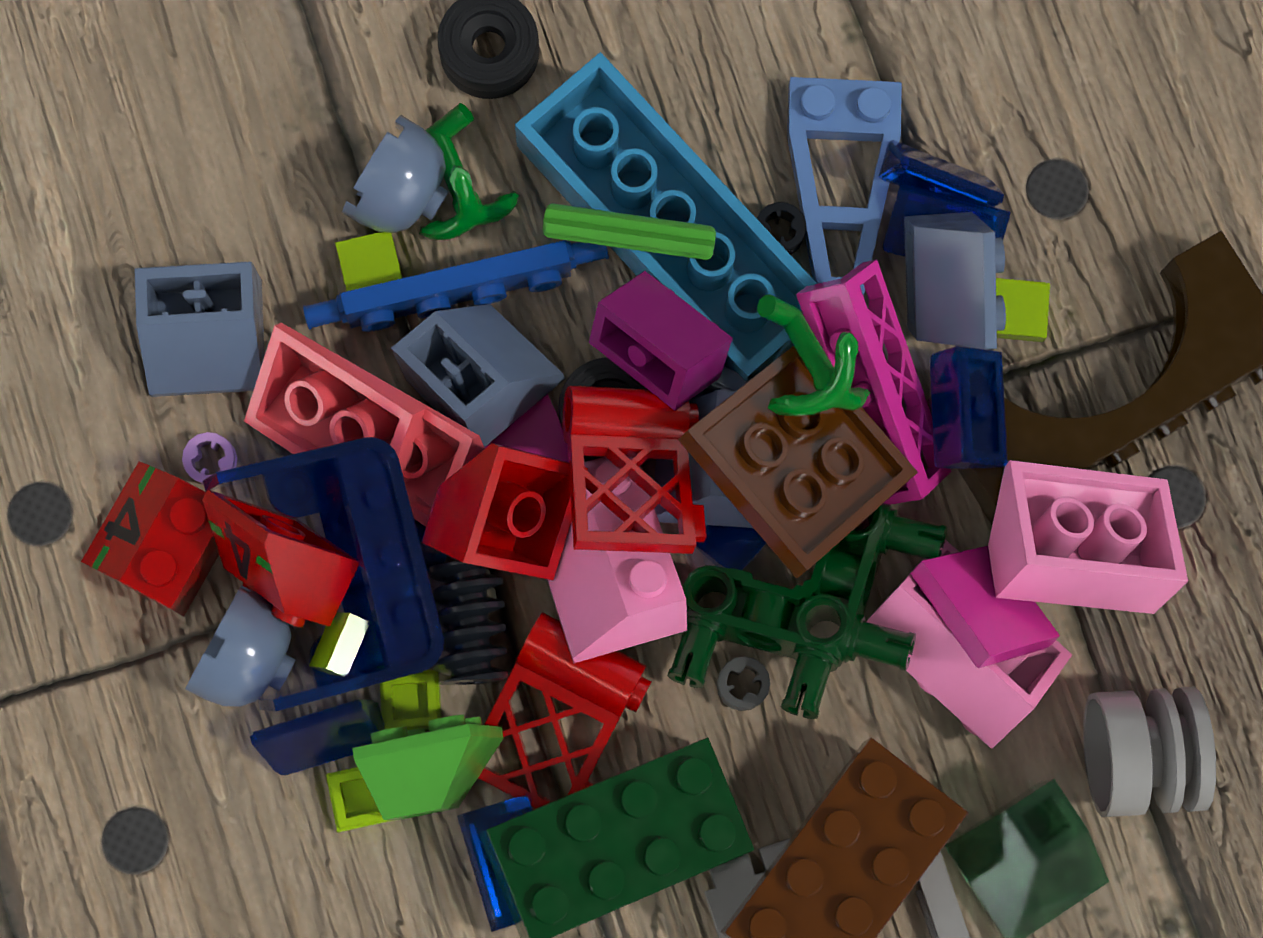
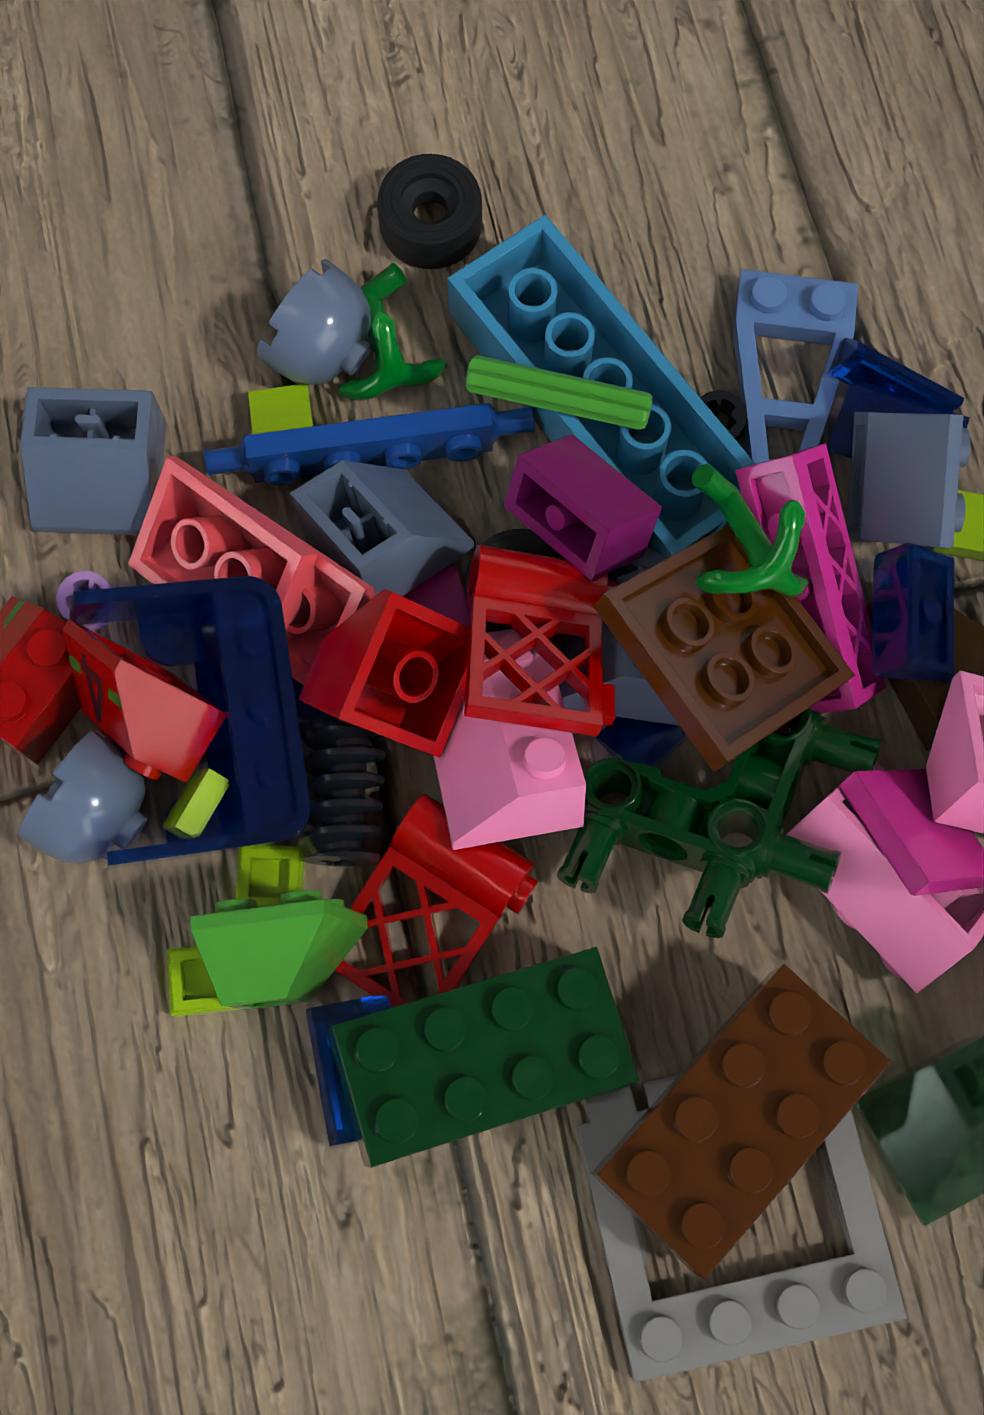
camera: 10 degrees right, 5 degrees down
(318, 736) = (159, 905): clear blue slope -> none
(736, 667) = (633, 875): dark grey bush -> none

